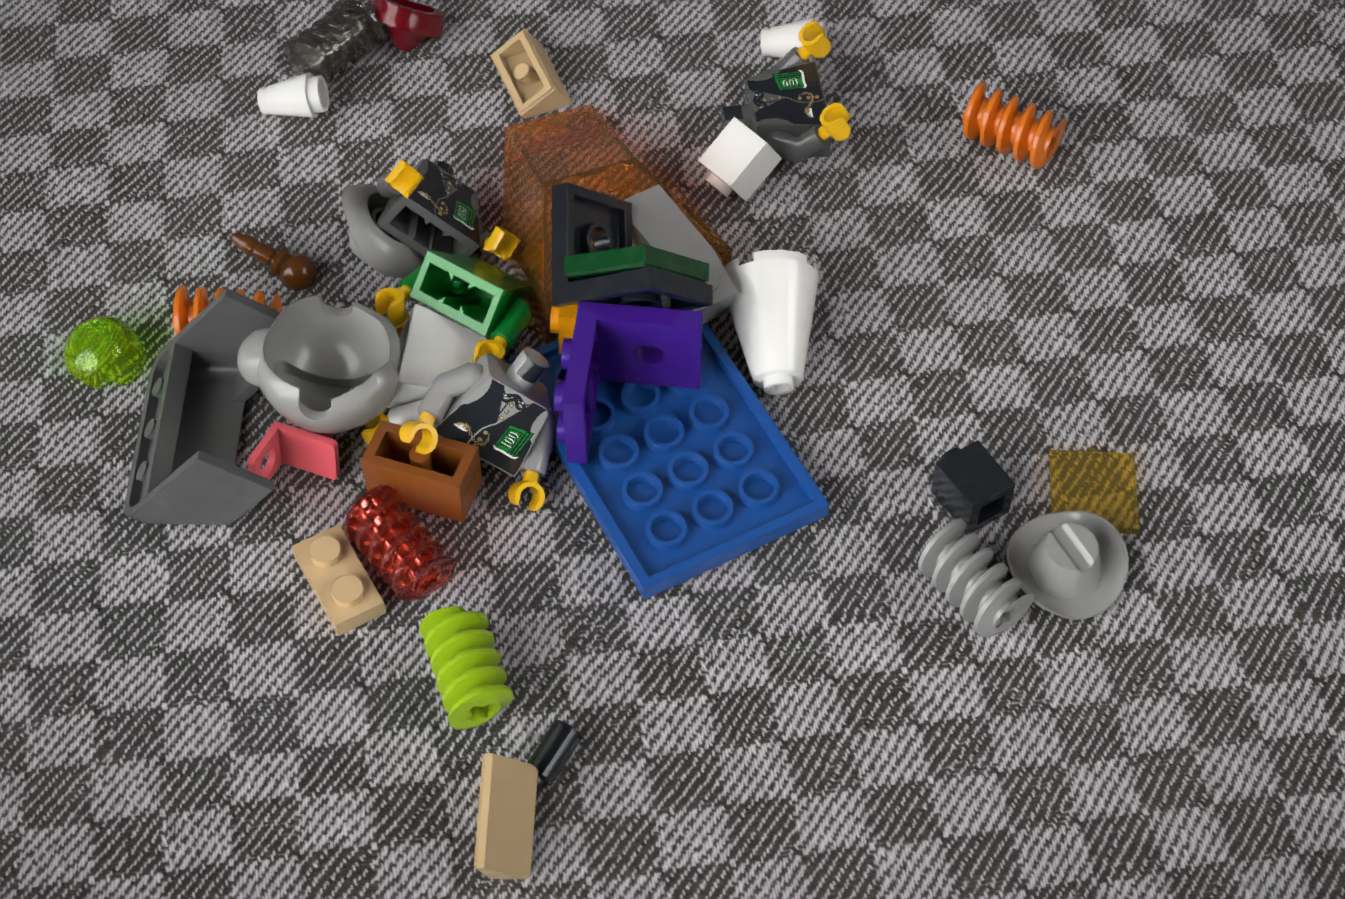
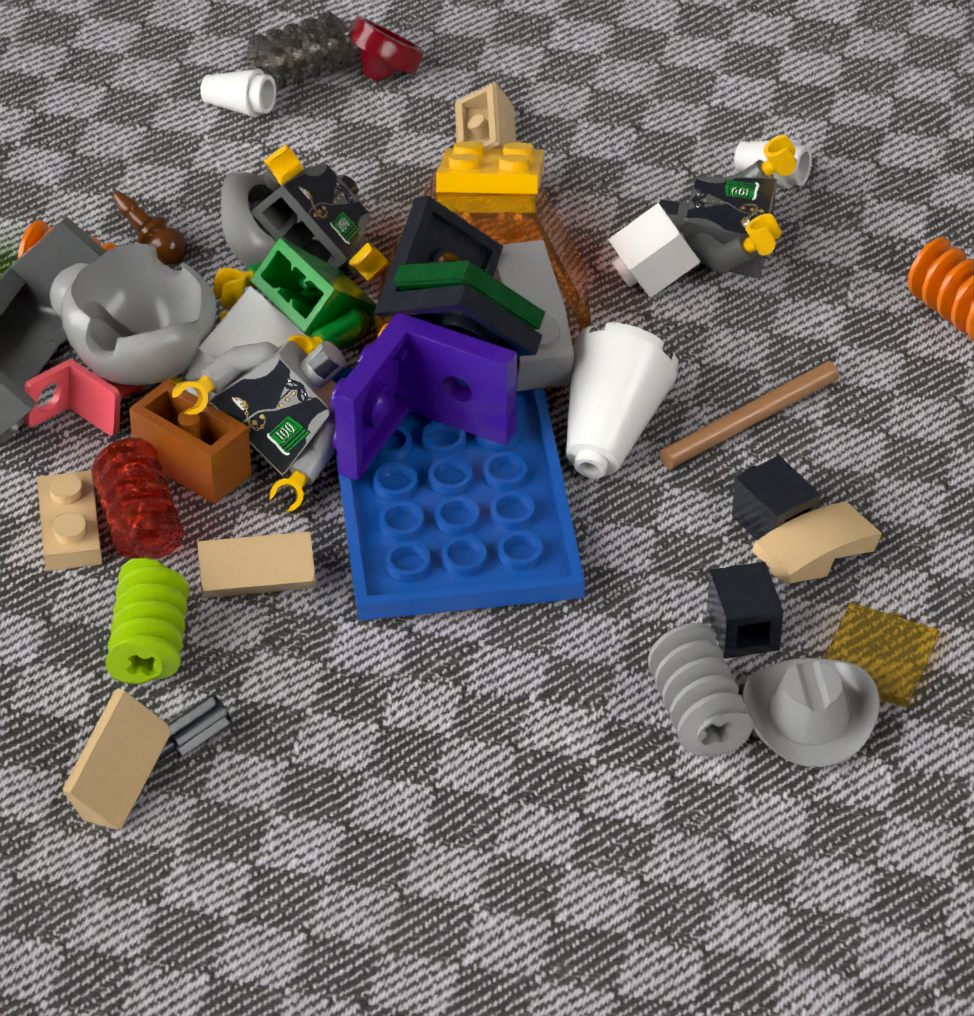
camera: 20 degrees right, 10 degrees down
(532, 574) = (256, 564): none -> tan slope
(563, 118) = (494, 171): none -> yellow plate
(883, 294) = (748, 415): none -> medium nougat bar
(950, 376) = (771, 496): none -> black brick
(1000, 402) = (811, 542): none -> tan slope

